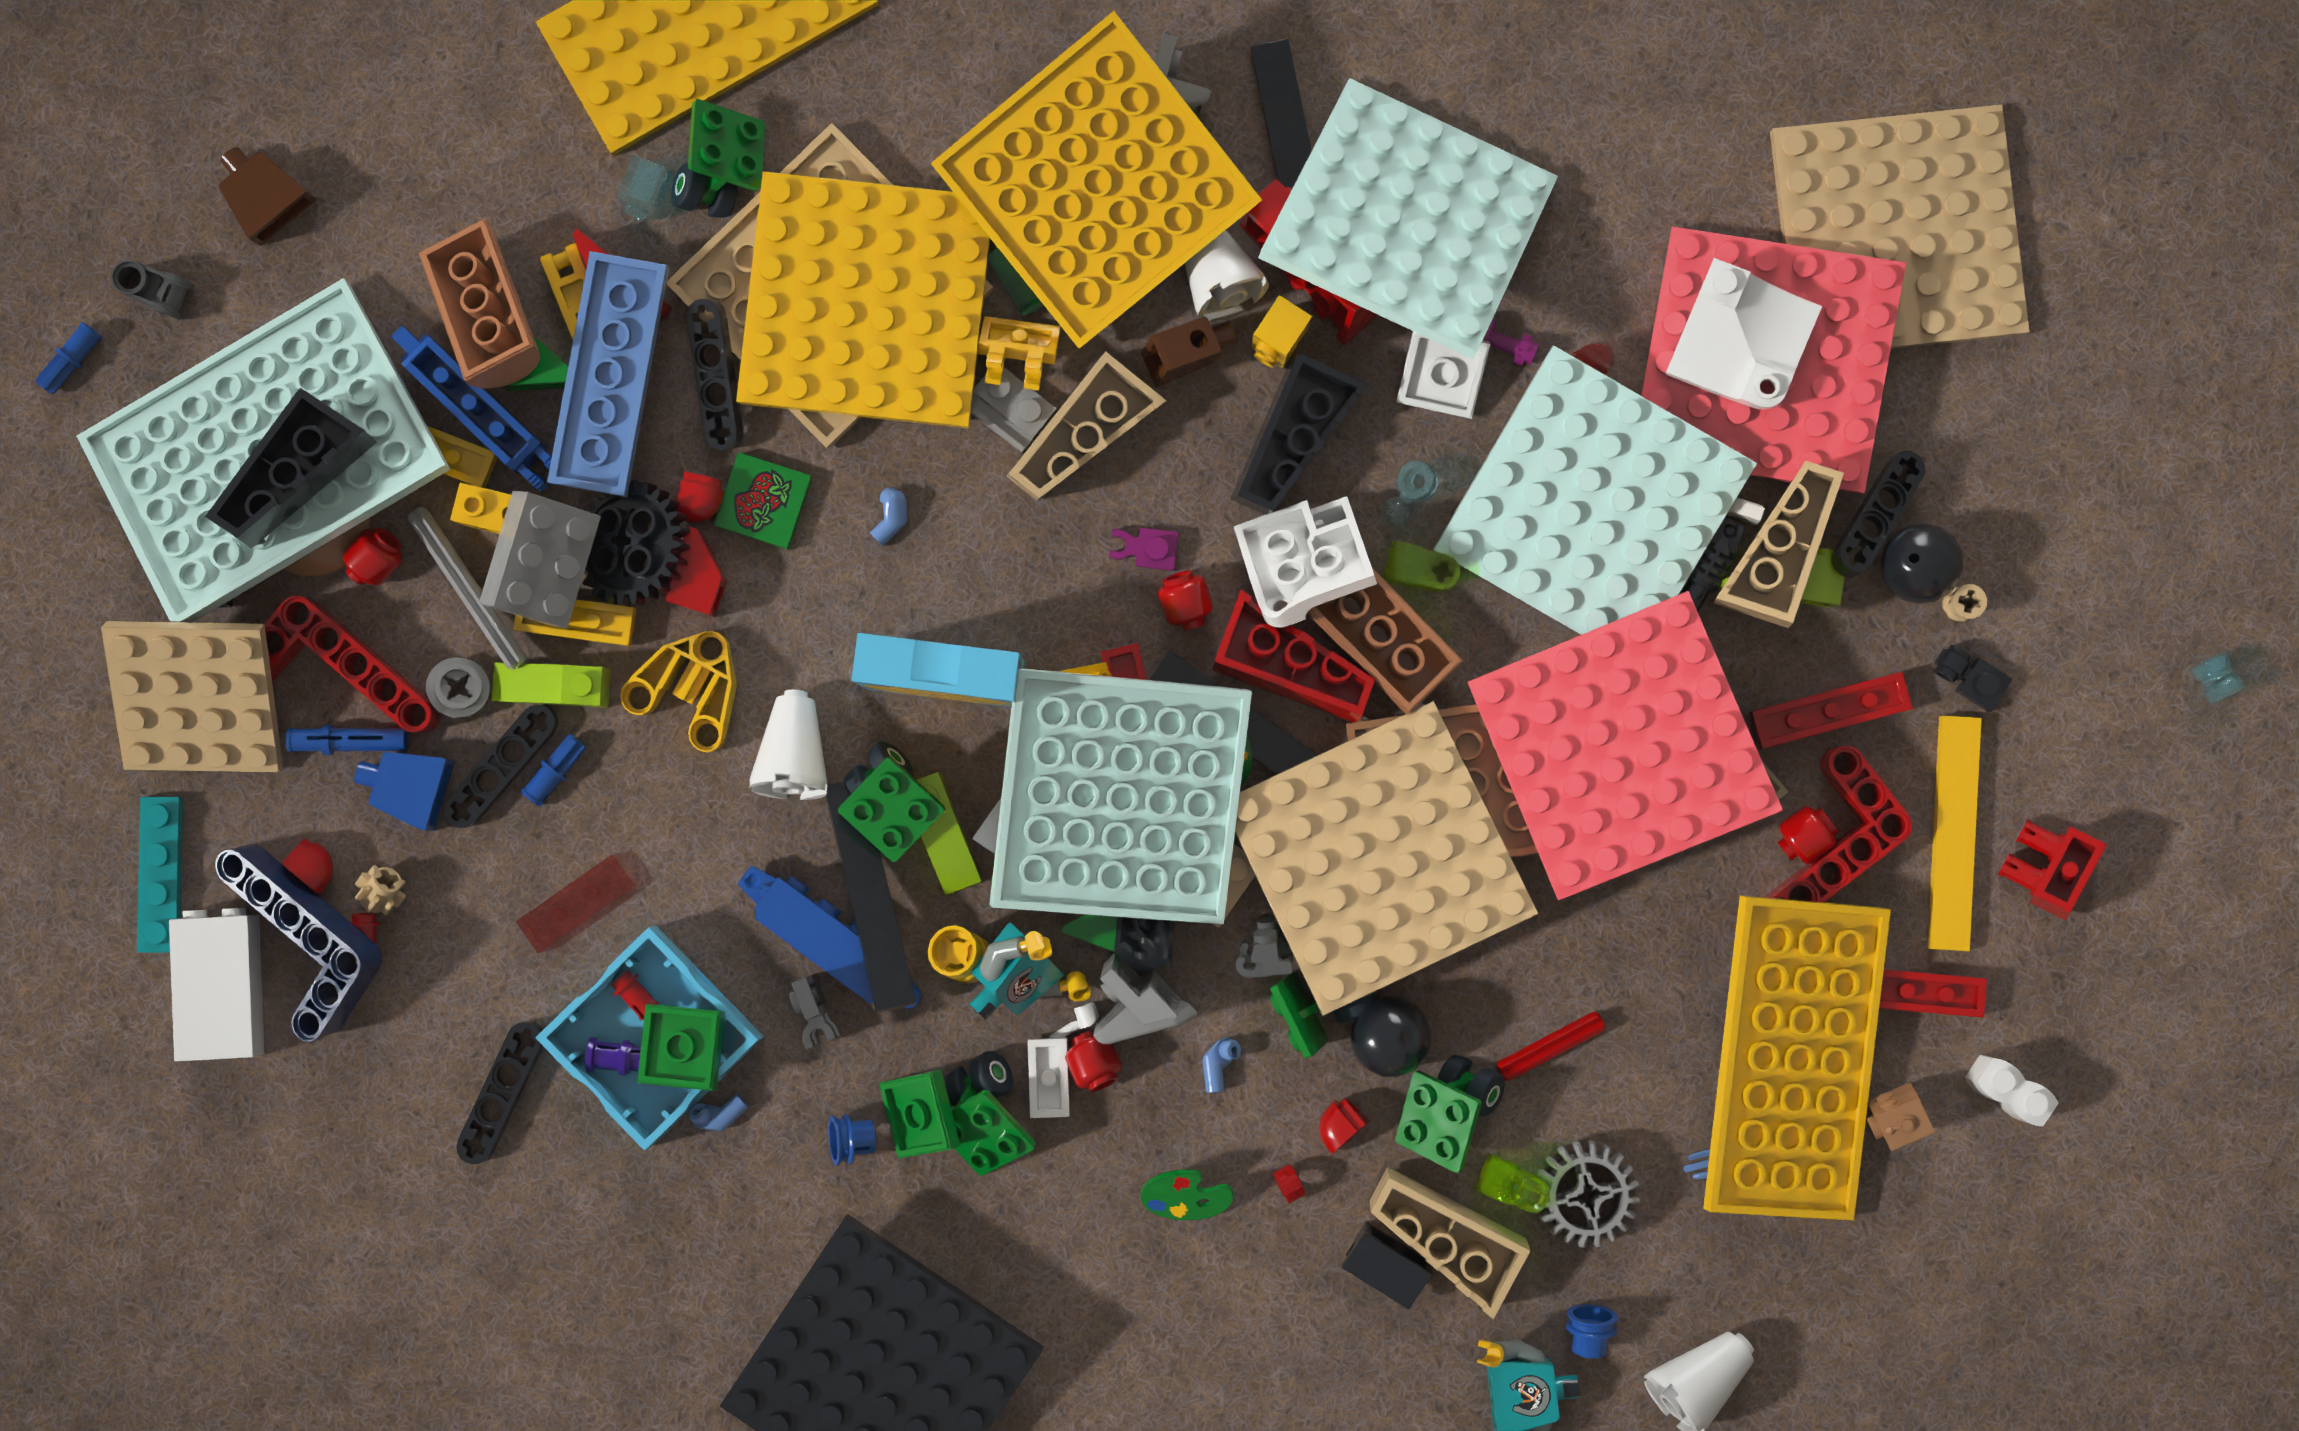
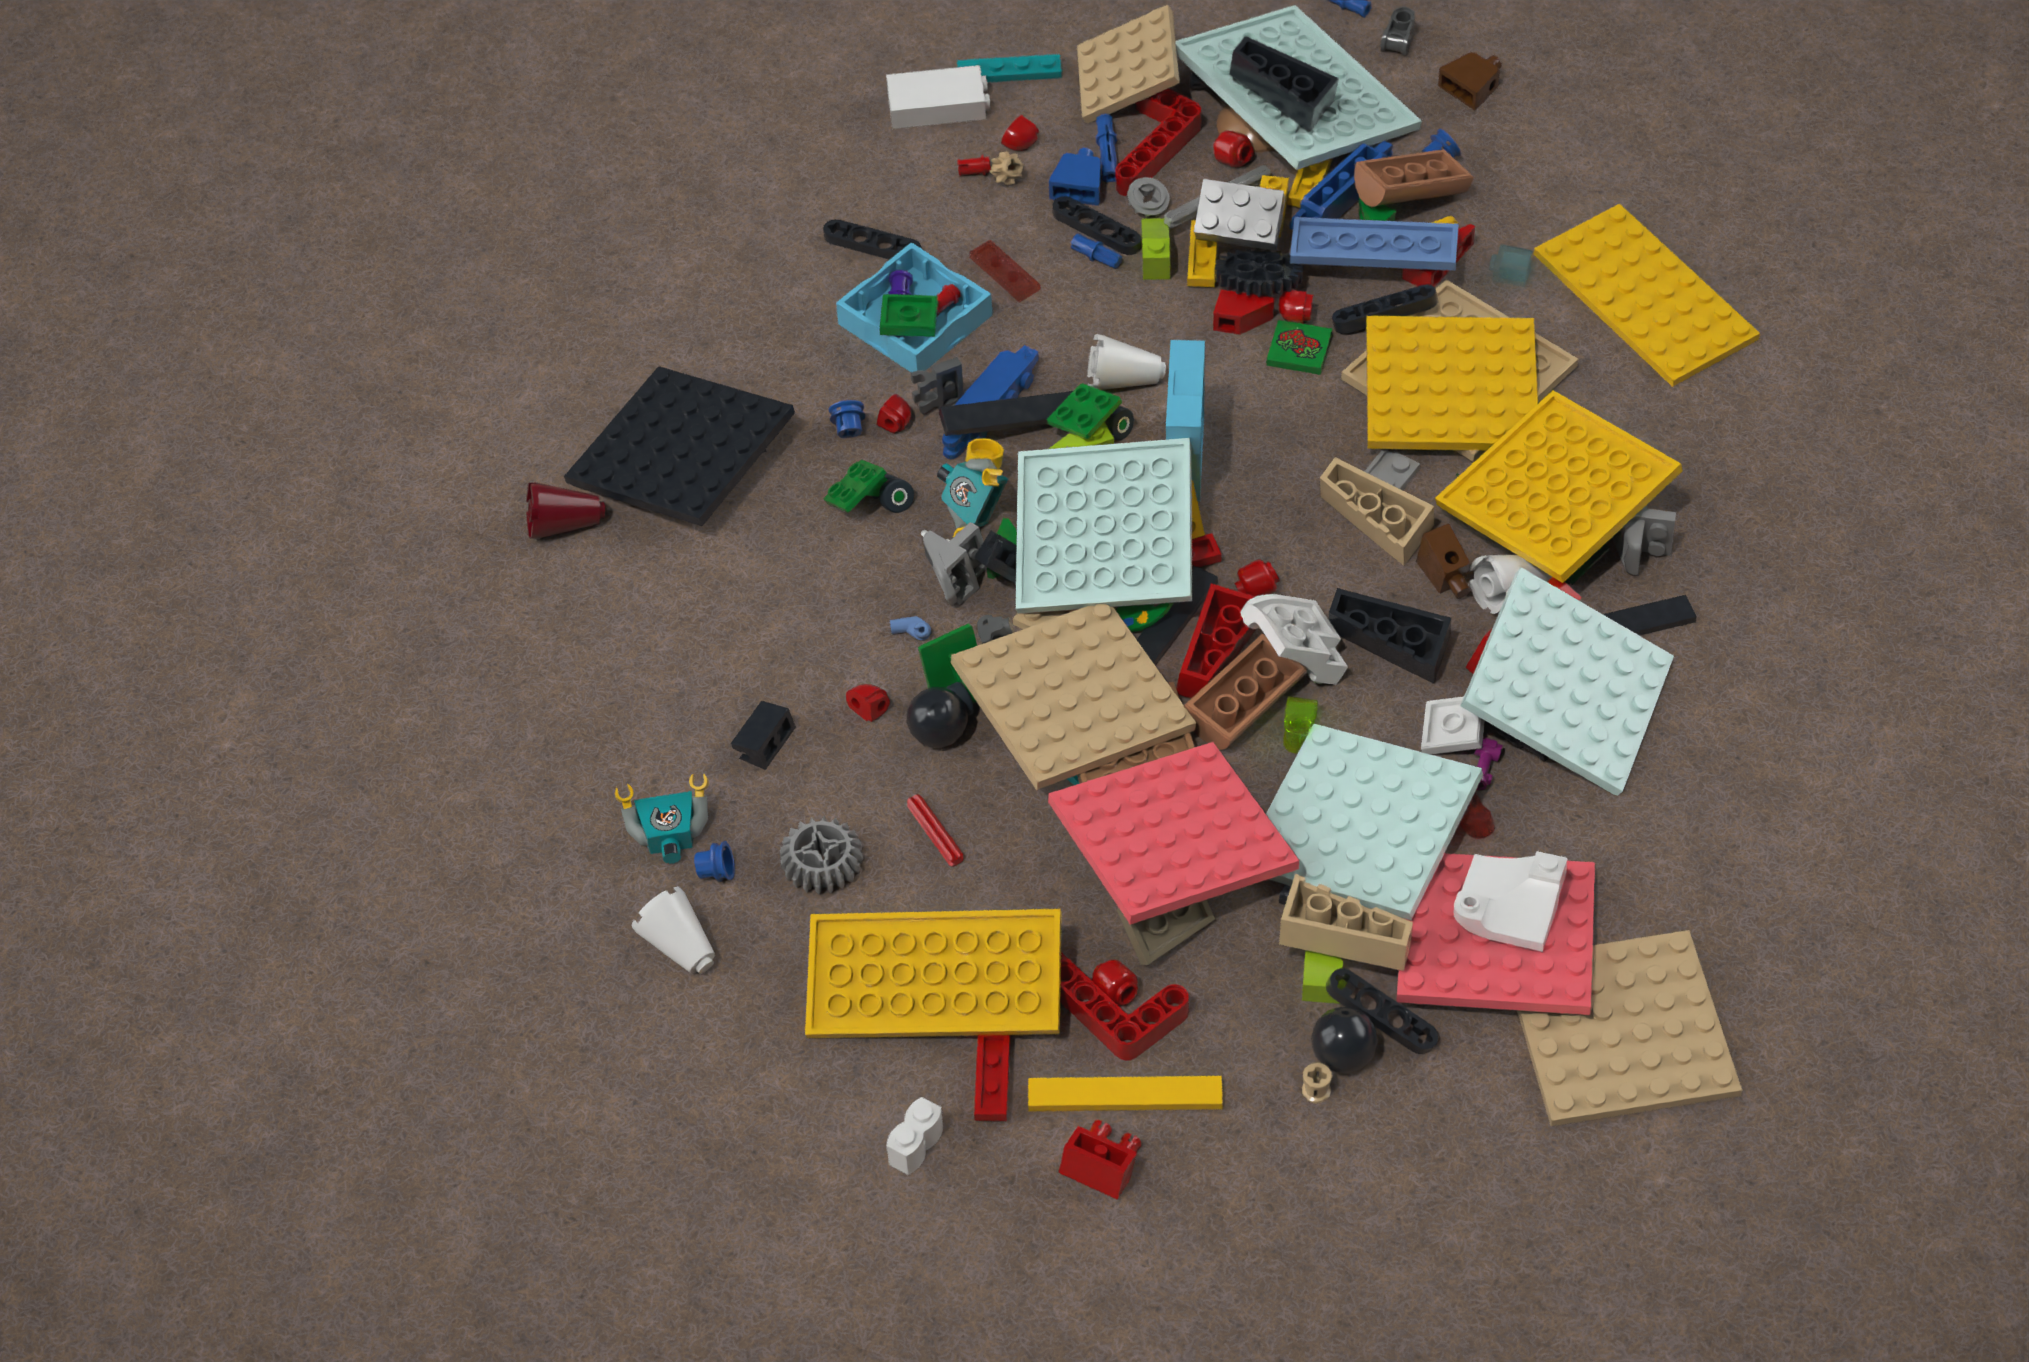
camera: 85 degrees right, 35 degrees down
(309, 932) = (974, 137): dark blue beam -> none
(405, 258) = (1439, 140): none -> blue piece
(661, 669) = (1169, 315): yellow connector -> none
(717, 1117) = (860, 354): medium blue arm -> none
(723, 154) = (1542, 296): green plate -> none
(844, 1070) = (894, 414): none -> red piece
(894, 515) = (1299, 416): medium blue arm -> none
(919, 1114) = (866, 451): green tile -> none
(1020, 341) = (1435, 472): yellow plate -> none
(1048, 1077) = (896, 527): white plate -> none
(1092, 1063) = (907, 550): red head -> none
(1152, 548) = (1293, 563): magenta plate -> none
(1177, 1196) = (812, 605): green piece -> none
(1280, 333) = (1469, 612): yellow brick -> none
(1289, 1183) = (823, 671): red axle -> none
(1399, 509) = (1363, 715): clear light blue plate -> none
(1444, 1111) = (888, 754): green plate -> none
(1455, 1240) = (784, 769): tan wedge -> none
(1512, 1185) = (829, 799): clear neon green piece -> none
(1830, 710) = (1217, 997): red plate -> none
(1899, 1117) = (890, 1053): medium nougat head -> none
(1979, 683) = (1253, 1105): black plate -> none
(2217, 677) = (1275, 1274): clear light blue wheel -> none

